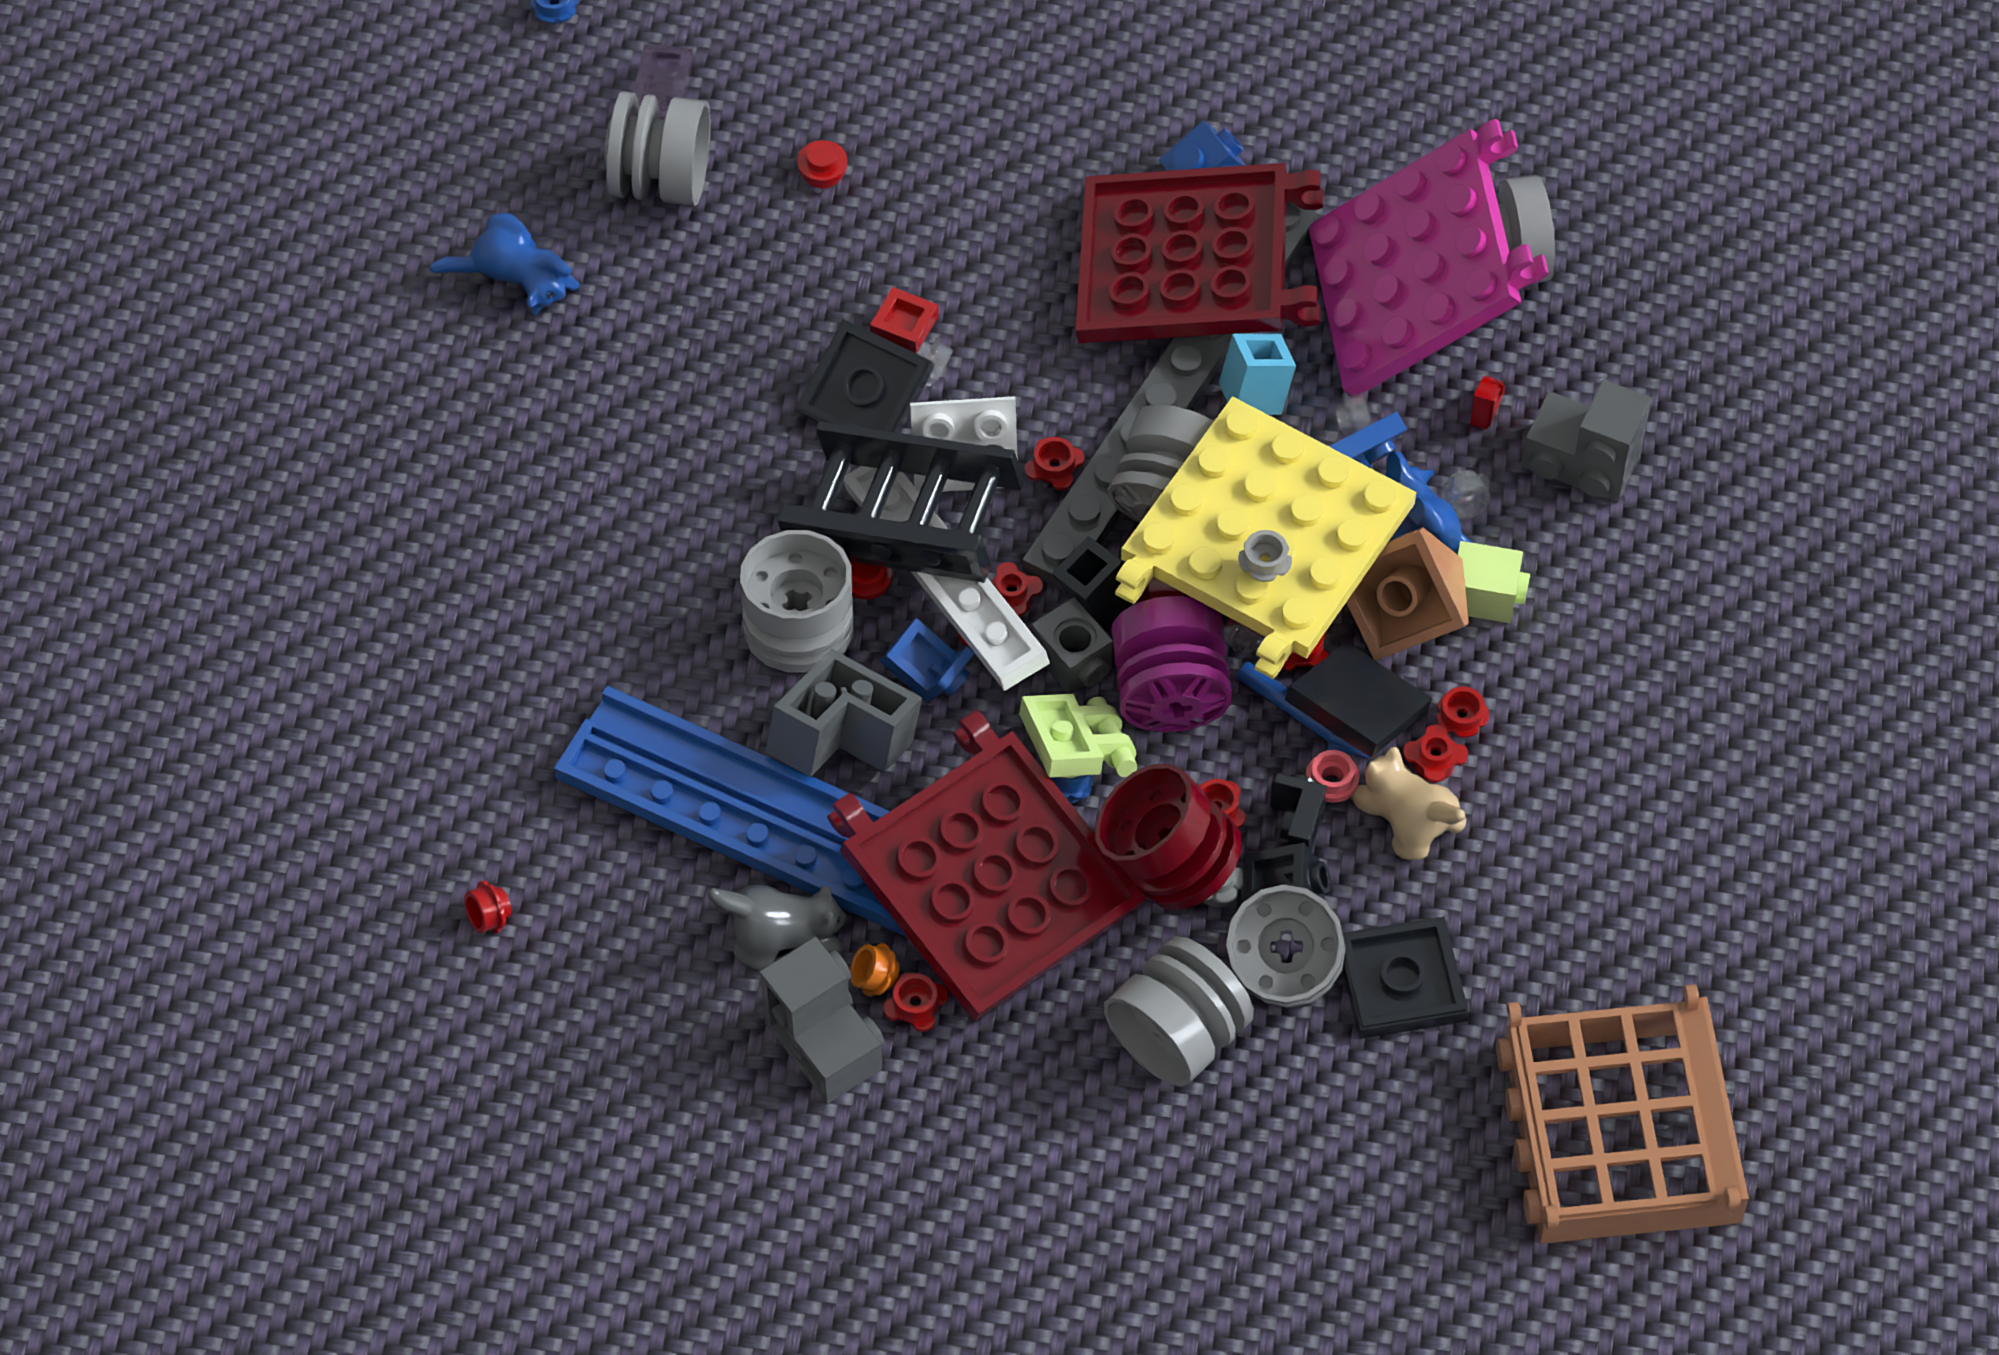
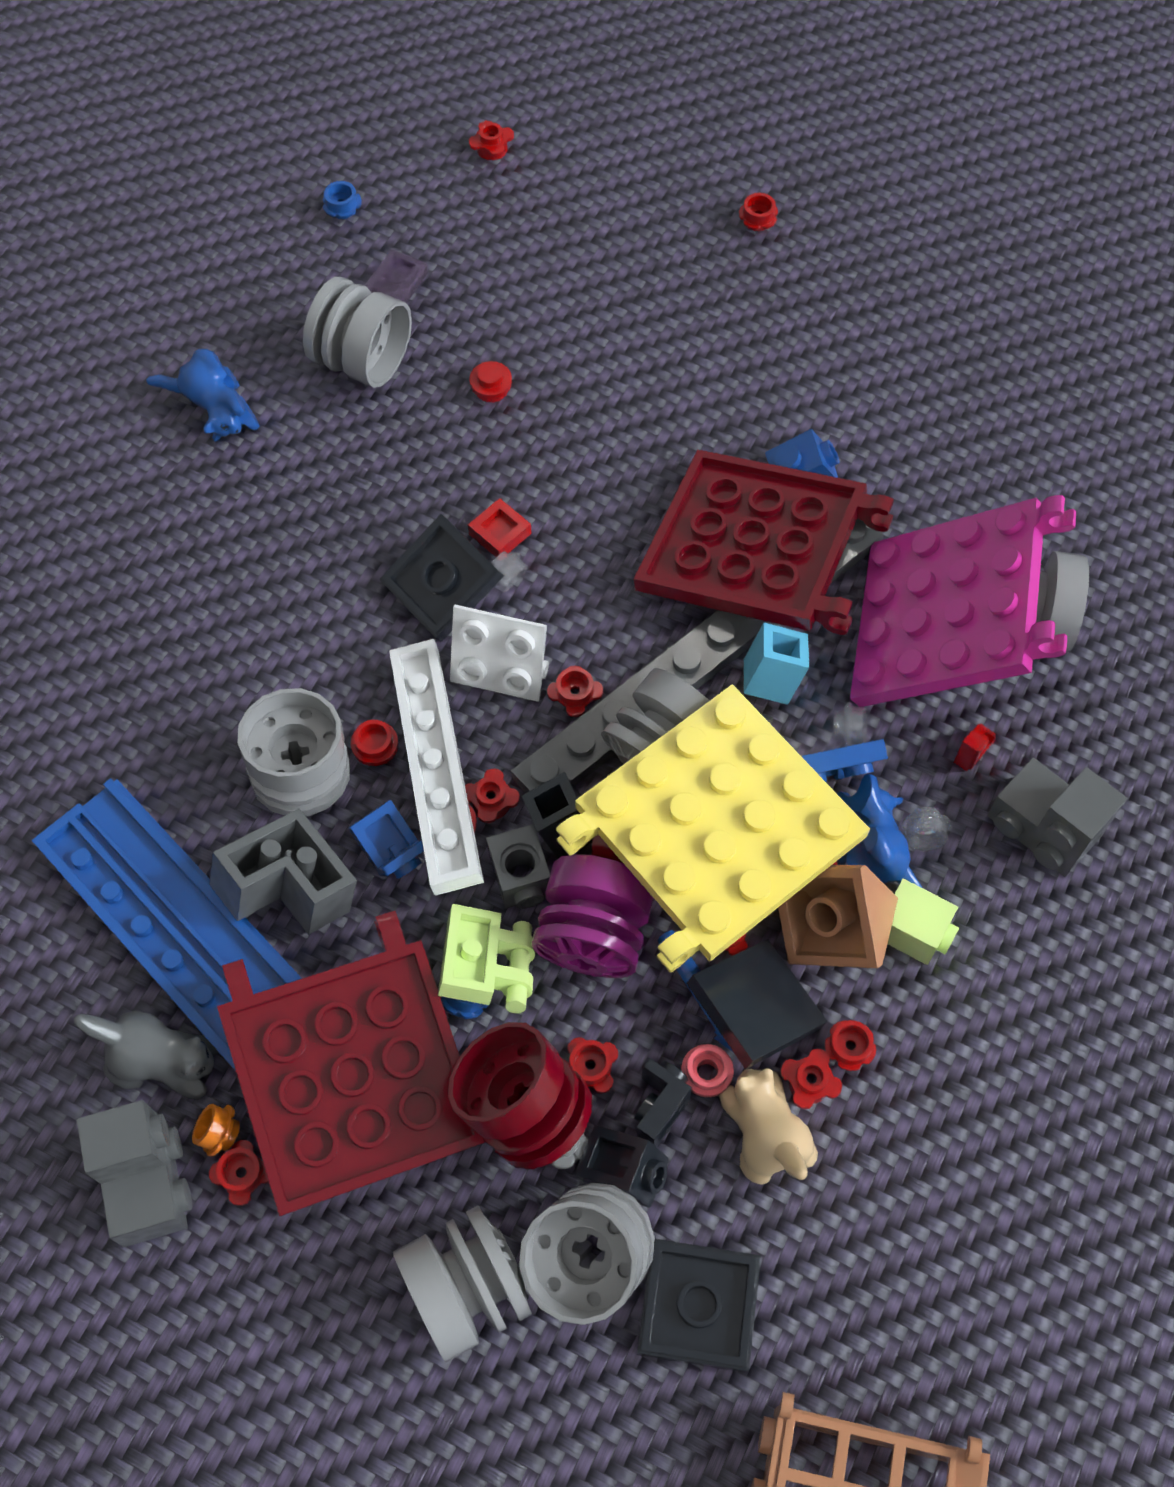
camera: 20 degrees right, 5 degrees up
(909, 543) = (408, 730): black fence -> none
(1266, 544) = (702, 841): light grey plate -> none

